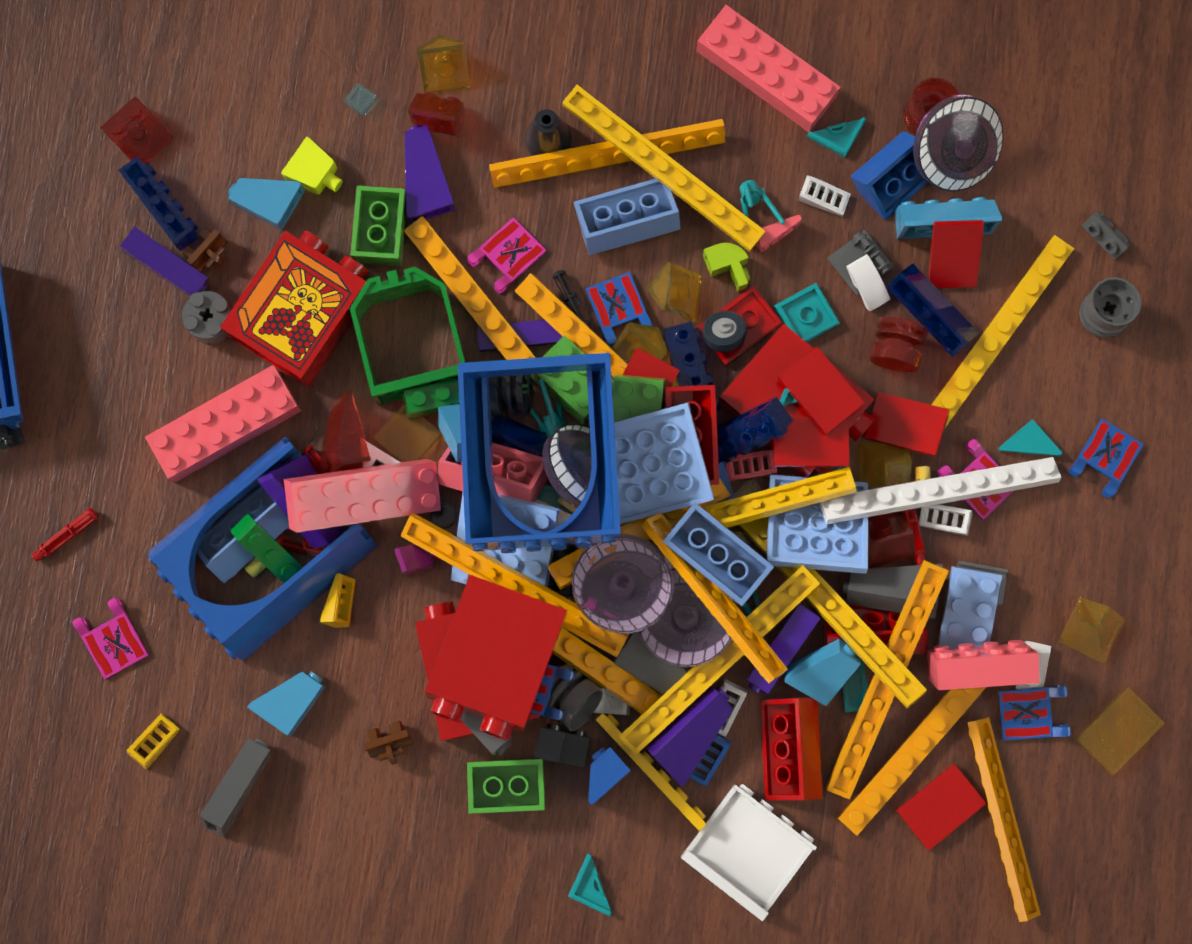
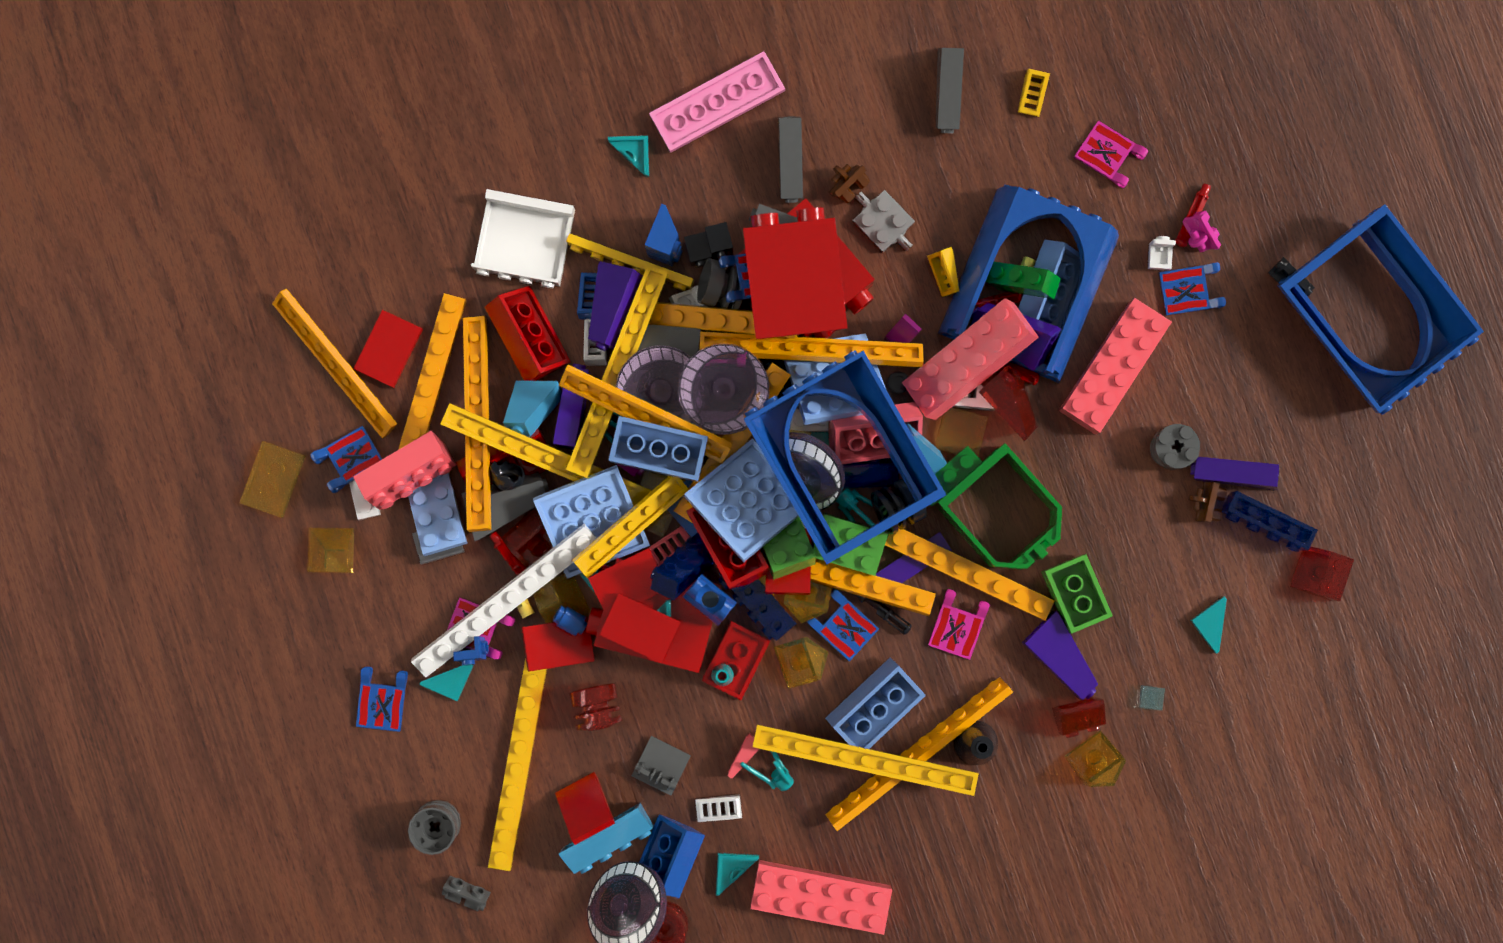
camera: 150 degrees right, 5 degrees up
(66, 511) = (1201, 233): none -> dark pink hips
(111, 465) = (1187, 290): none -> flag
(117, 512) = (1161, 253): none -> white bracket
(266, 140) = (1210, 623): none -> teal tile
(266, 199) = (1182, 570): dark azure slope -> none
(289, 702) = (942, 173): dark azure slope -> none
(297, 306) = (1107, 490): brick -> none
(312, 168) = (1158, 615): neon yellow torso -> none
(373, 684) = (883, 221): none -> light grey plate
(433, 797) = (790, 158): none -> dark grey slope
(478, 895) = (717, 102): none -> bright pink plate
(506, 786) = (738, 192): bright green brick -> none
(724, 331) = (745, 646): black wheel -> none
(729, 258) = (773, 713): lime brick -> none
(737, 382) = (709, 599): none -> blue piece
(758, 320) = (722, 668): none -> teal cone
(807, 313) = (684, 698): teal tile -> none
(855, 689) = (498, 404): teal tile -> none
(868, 282) = (646, 749): white slope -> none
(881, 610) = (506, 475): none -> black hair
(884, 438) = (570, 620): none -> blue brick
(932, 309) = (581, 752): clear blue brick -> none
(964, 530) = (471, 584): white slope -> none
(1000, 453) = (470, 656): none -> blue bracket

